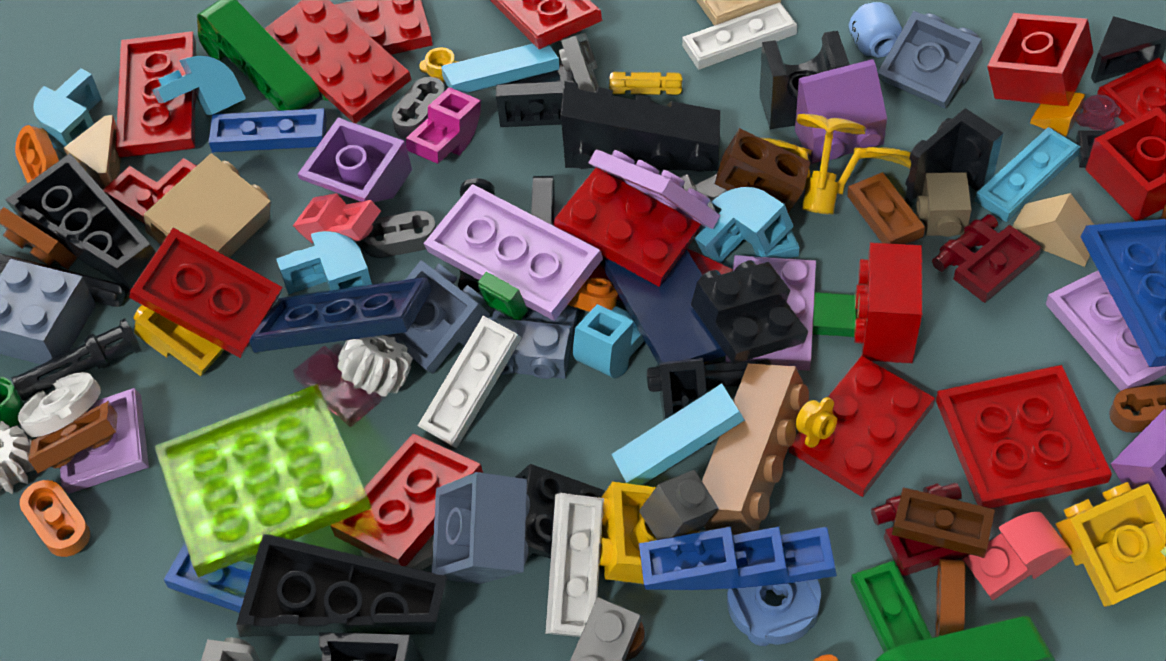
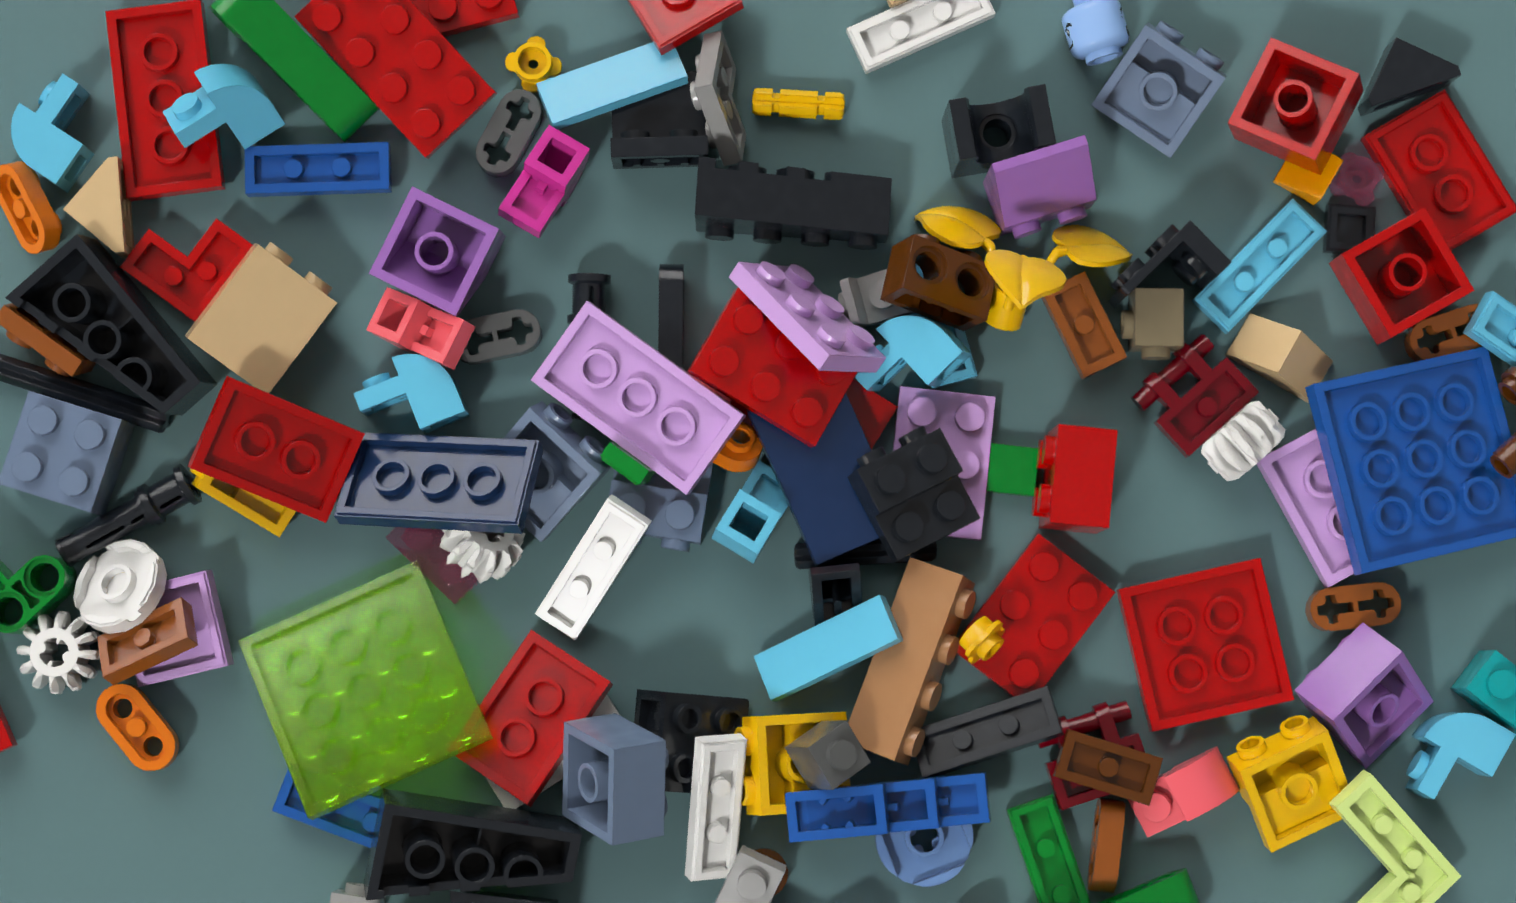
camera: 10 degrees left, 30 degrees up
(834, 500) = (989, 732): none -> black plate
(1032, 276) = (1243, 441): none -> white gear

